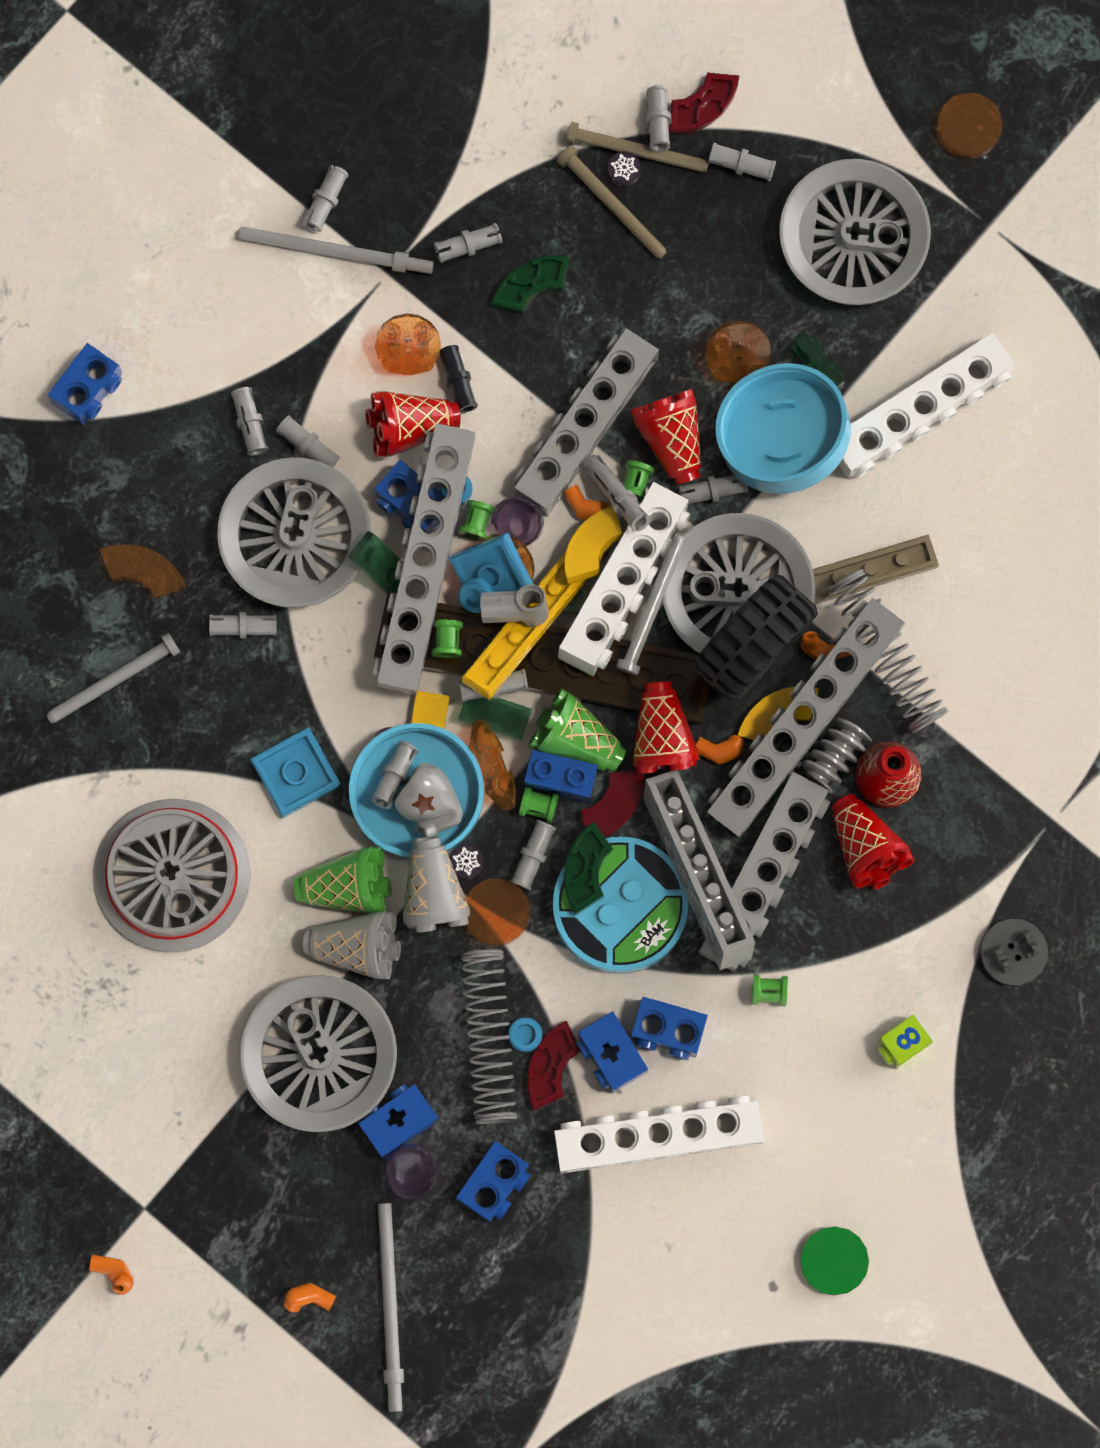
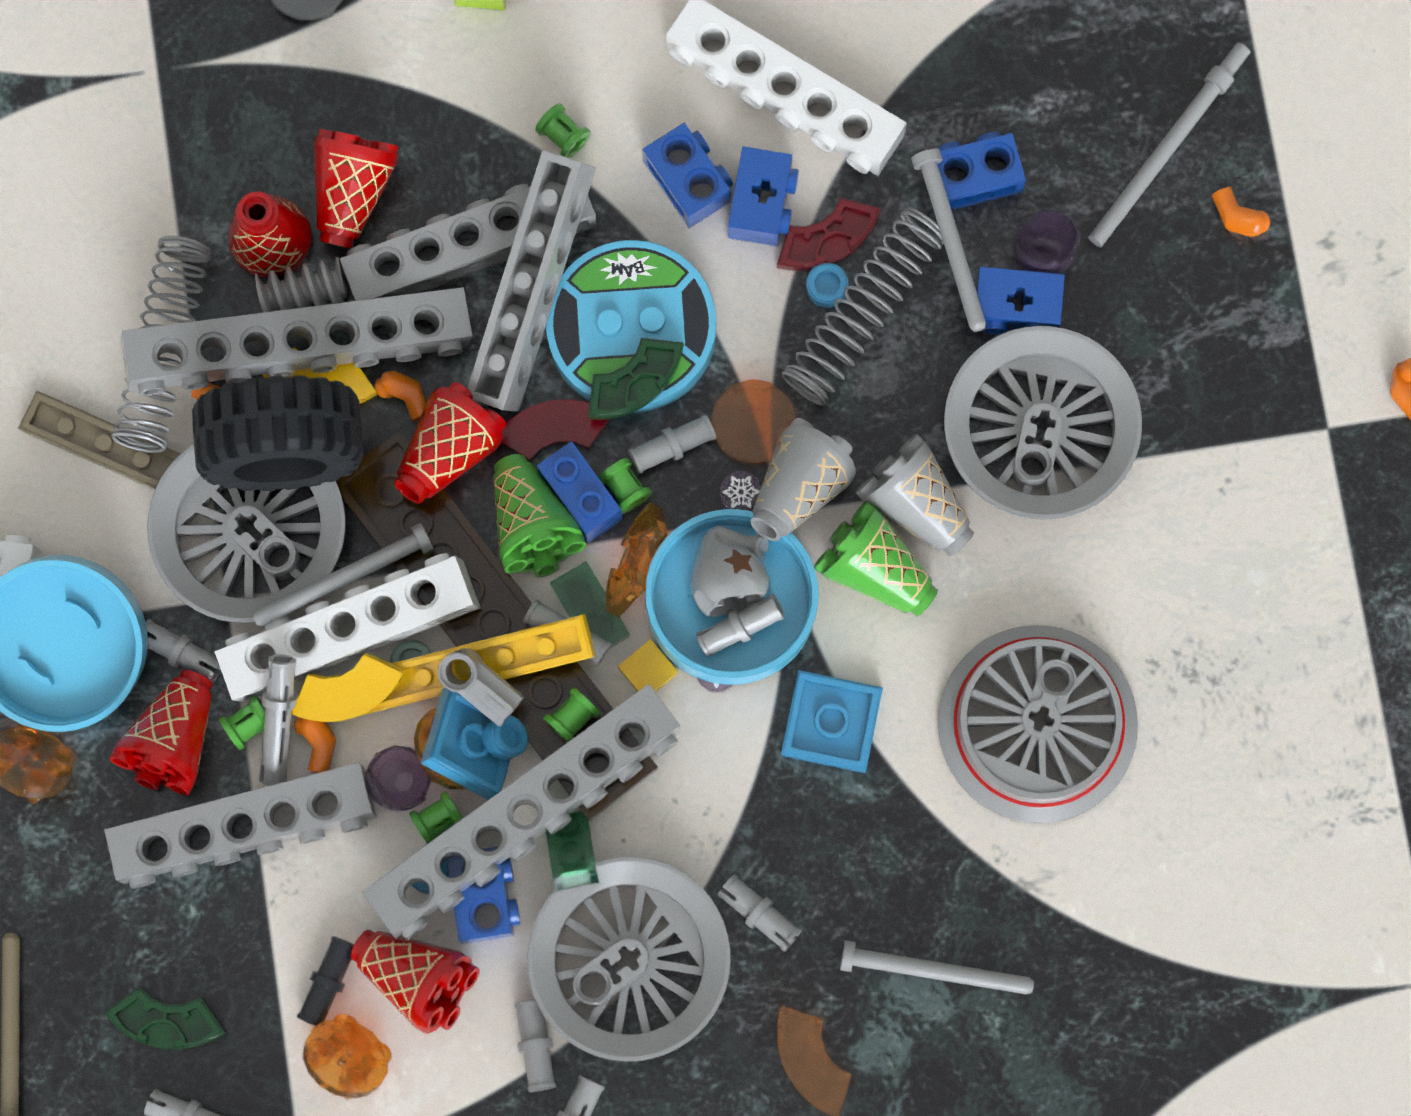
camera: 135 degrees left, 0 degrees up
(523, 1152) = (927, 163): none -> light grey bar

